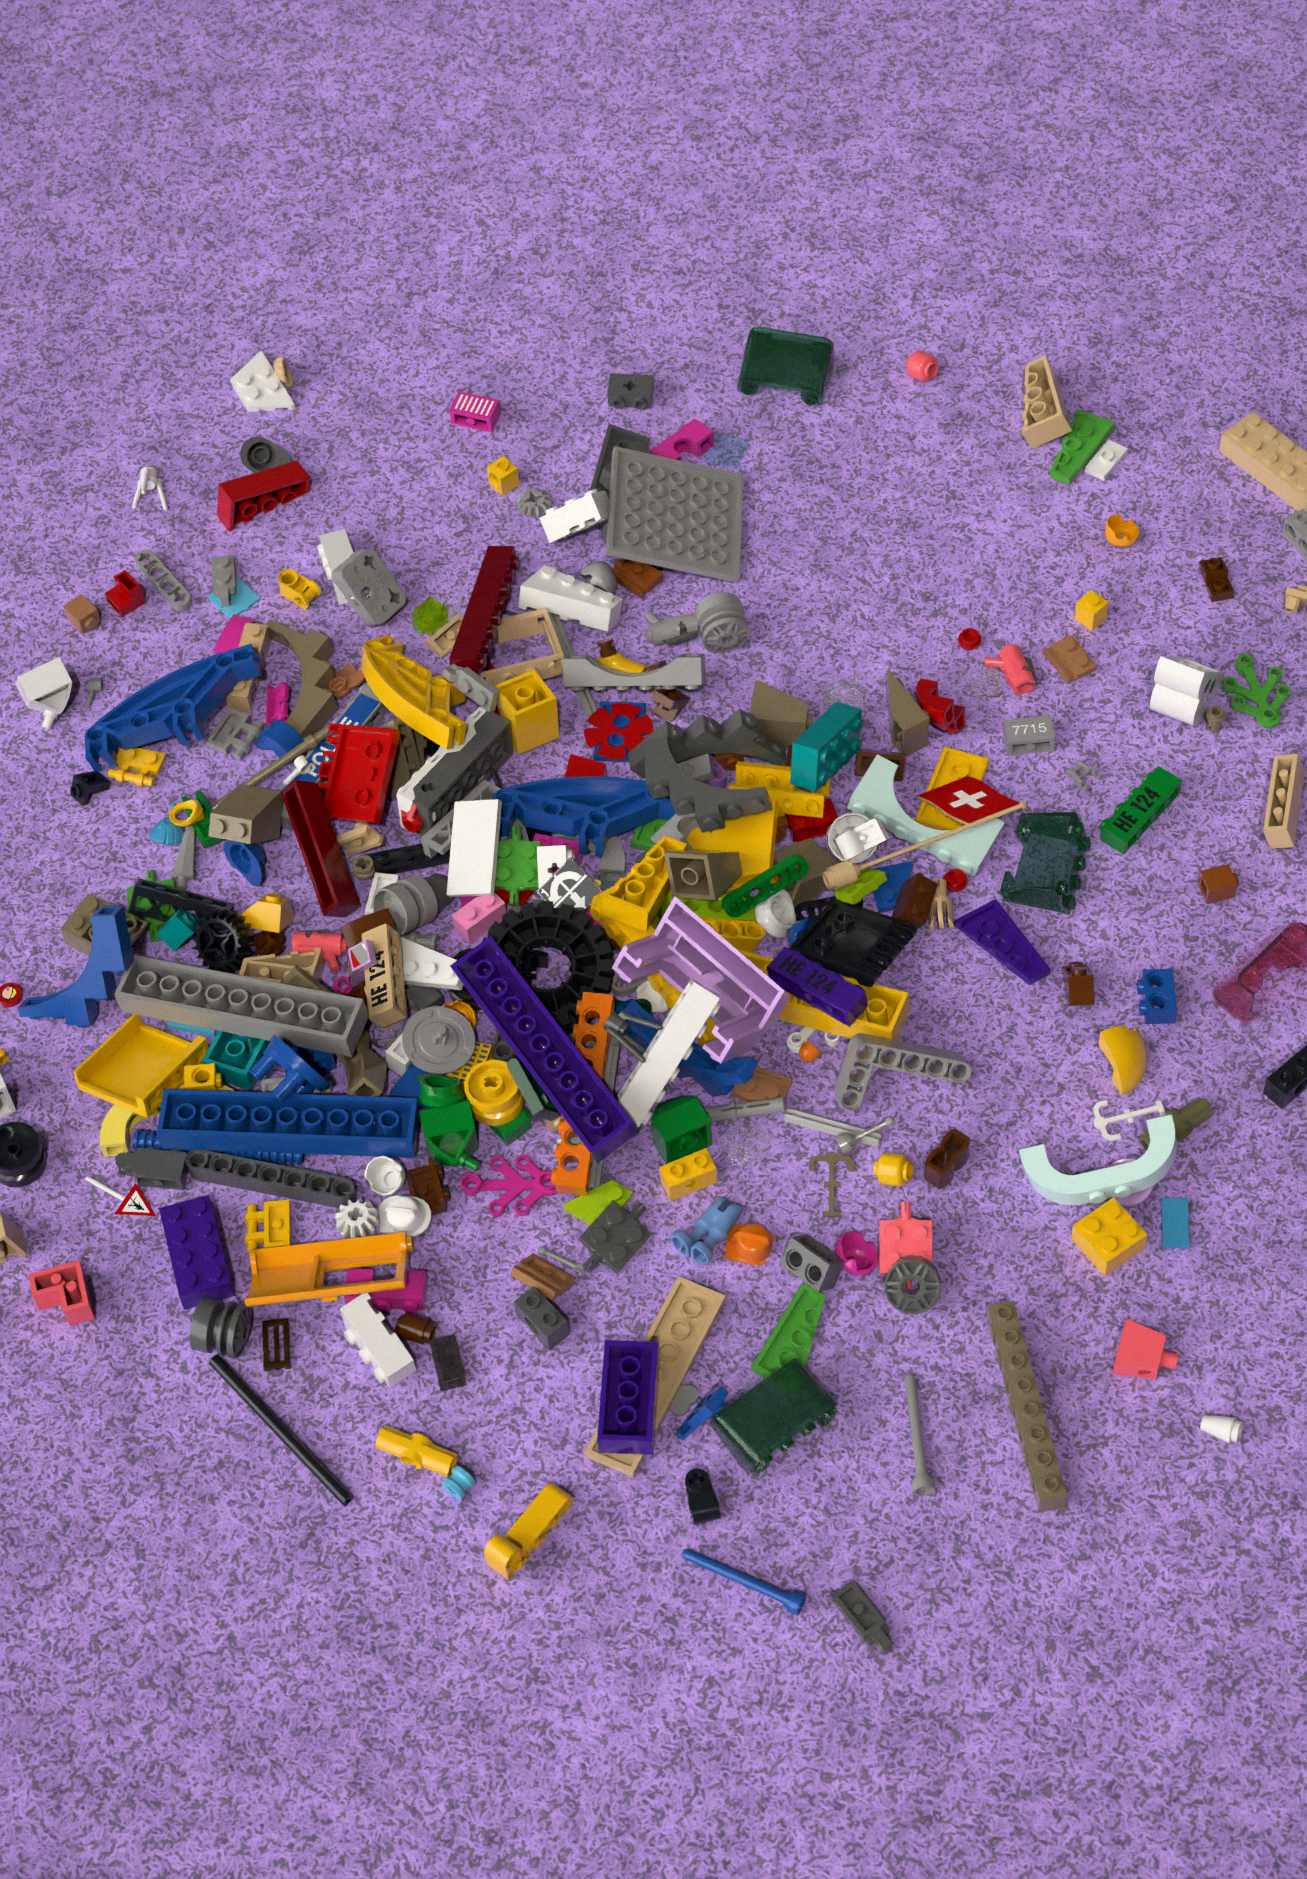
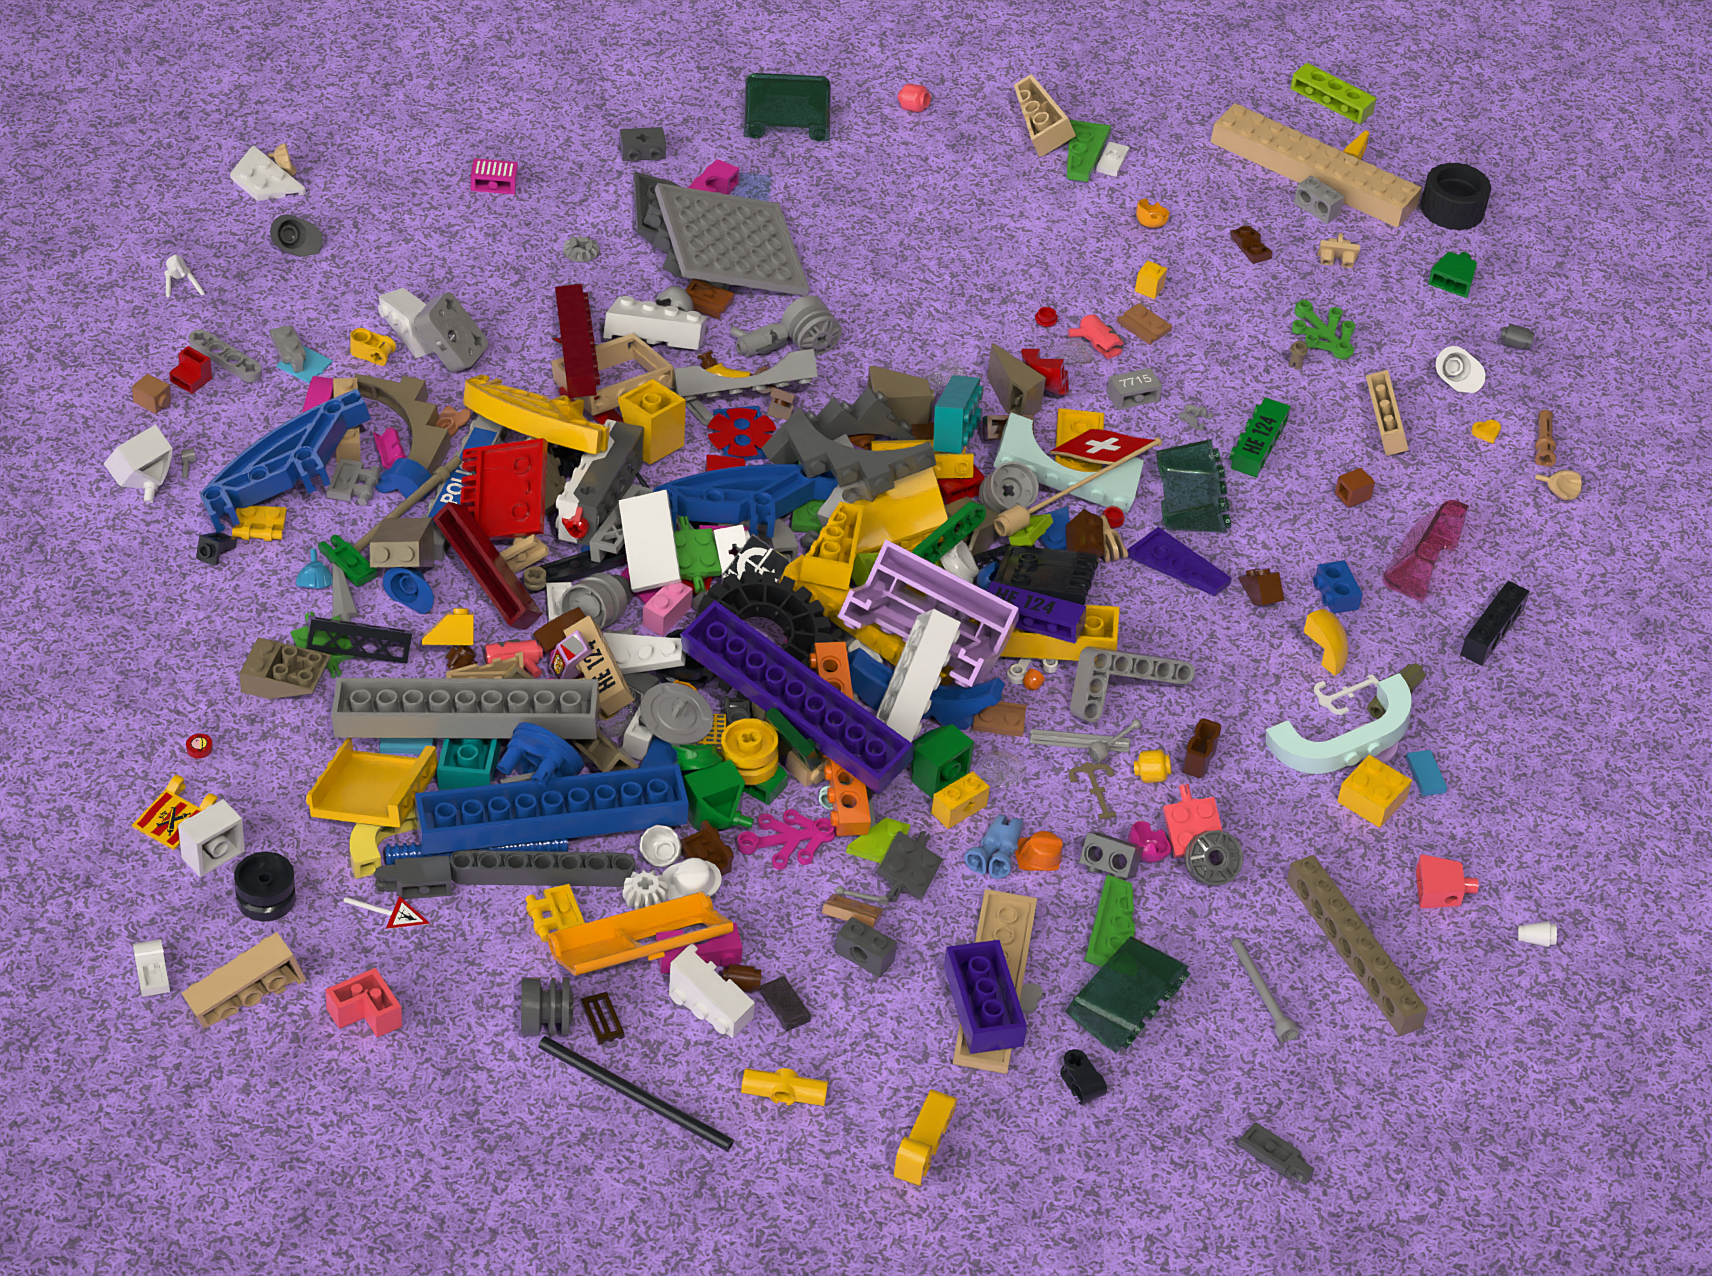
camera: 25 degrees left, 10 degrees down
(109, 954) = (302, 710): blue arch -> none
(177, 929) = (363, 657): teal brick -> none
(196, 815) = (336, 546): yellow piece -> none
(196, 1251) = (490, 944): dark purple brick -> none
(197, 1073) = (445, 779): yellow brick -> none
(212, 939) = (410, 653): black gear -> none
(260, 492) = (300, 267): red wedge -> none
(302, 767) = (440, 496): white hand -> none
(429, 616) = (516, 355): clear neon green brick -> none
(443, 640) = (538, 372): tan slope -> none
(458, 1482) = (838, 1107): medium azure wheel -> none
(472, 686) = (597, 400): light grey hinge -> none
(503, 475) = (544, 227): yellow brick -> none
(575, 515) = (636, 249): white wedge -> none
(617, 1027) = (861, 667): dark grey plant -> none
(701, 872) = (889, 521): dark tan slope -> none
(710, 1404) = (1057, 998): blue wing -> none
(746, 1109) = (1001, 734): light grey pin -> none
(790, 1600) = (1202, 1152): blue piece -> none
(861, 838) = (1024, 483): white plate -> none
(1184, 688) = (1263, 330): white brick -> none

